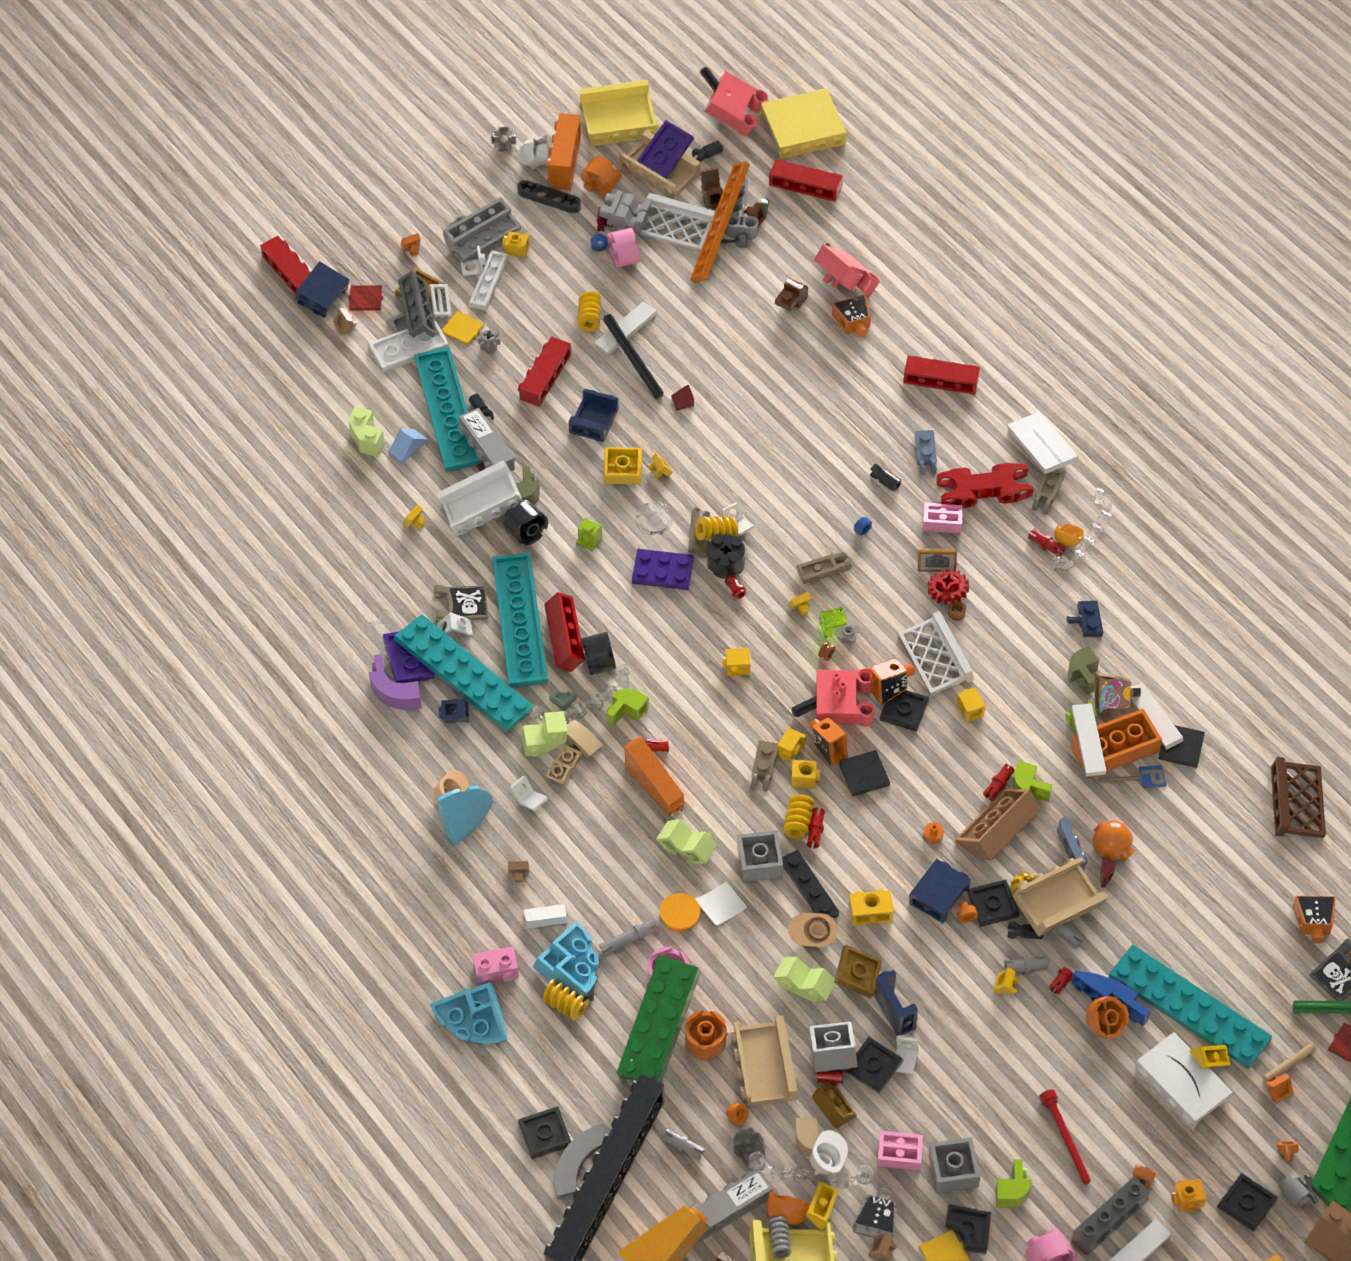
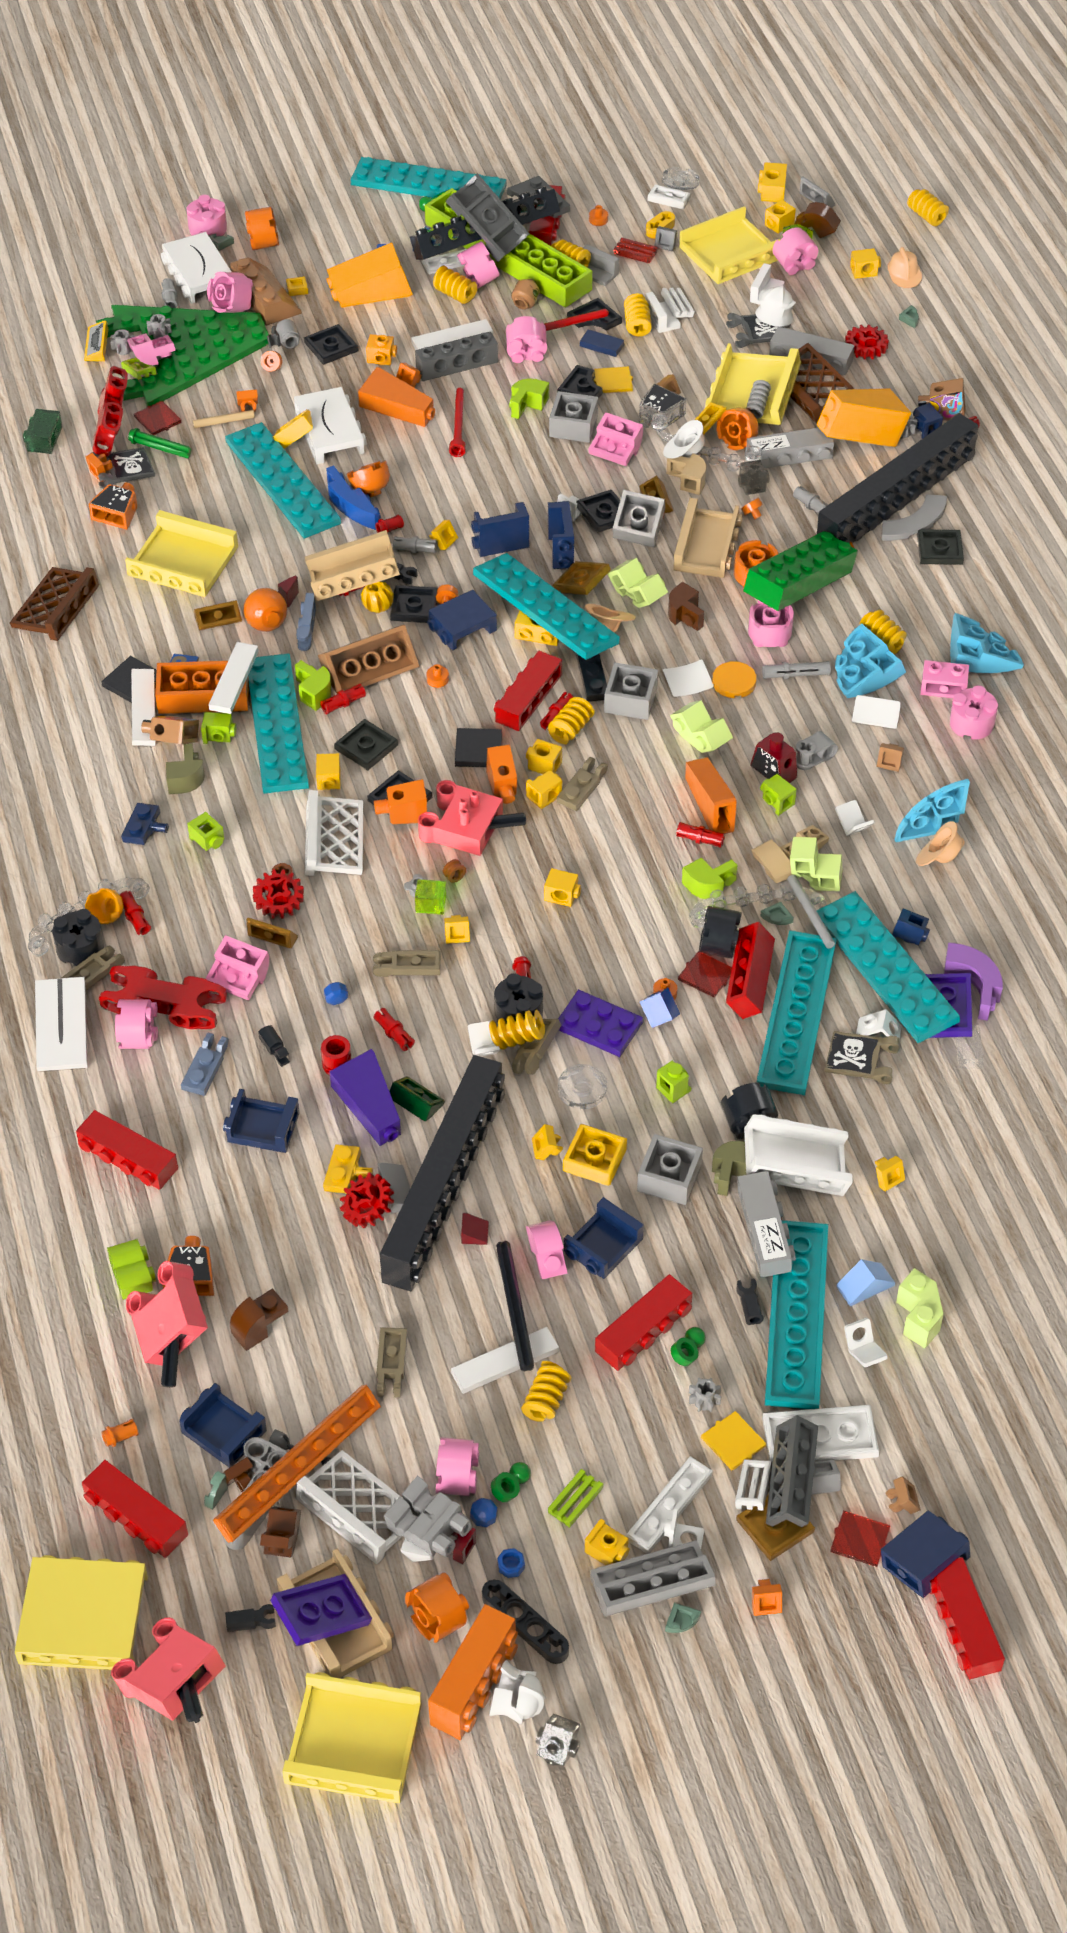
camera: 160 degrees left, 5 degrees down
(393, 398) = (865, 1349): none -> white bracket
(460, 933) = (973, 712): none -> bright pink brick
(512, 363) = (685, 1349): none -> green plate
(530, 691) = (811, 911): none -> light grey bar
(550, 256) = (561, 1498): none -> lime tile
(566, 467) = (669, 1169): none -> light grey brick
(570, 220) = (511, 1563): none -> blue tile
(584, 854) = (814, 750): none -> light grey piece
(591, 256) = (518, 1474): none -> green plate
(595, 626) = (705, 974): none -> clear red piece
(599, 801) = (778, 793): none -> lime brick
(614, 827) = (775, 757): none -> dark red torso
(622, 589) = (660, 1007): none -> panel
(624, 609) = (666, 983): none -> orange tile
(629, 394) = (547, 1246): none -> bright pink brick
(697, 305) = (391, 1359): none -> dark tan hinge
(717, 416) = (442, 1173): none -> black brick
(749, 409) = (399, 1183): none -> light grey slope
(755, 969) = (684, 606): none -> reddish brown brick
(762, 387) = (366, 1200): none -> red gear
(767, 476) = (415, 1098): none -> dark green slope
(779, 239) = (221, 1425): none -> dark blue panel
(789, 411) = (343, 1168): none -> yellow plate
(799, 459) = (367, 1096): none -> dark purple slope
(807, 516) = (394, 1029): none -> red pin
(836, 478) = (335, 1052): none -> red piece
(843, 214) = (119, 1433): none -> orange pin
(847, 838) = (528, 690): none -> red brick
(863, 423) = (261, 1122): none -> dark blue panel
(871, 913) = (546, 606): none -> teal plate
(891, 304) = (130, 1267): none -> lime brick
(949, 986) = (501, 532): none -> dark blue panel
(957, 747) = (366, 744): none -> pearl dark grey tile
(986, 449) = (136, 1024): none -> bright pink brick
(1033, 620) = (208, 836): none -> lime brick
(1041, 745) = (277, 724): none -> teal plate
(1072, 504) = (77, 936): none -> black brick
(1140, 1138) = (395, 398): none -> orange slope
(1154, 834) = (217, 615): none -> pearl gold slope
(1222, 882) = (184, 554): none -> light yellow panel

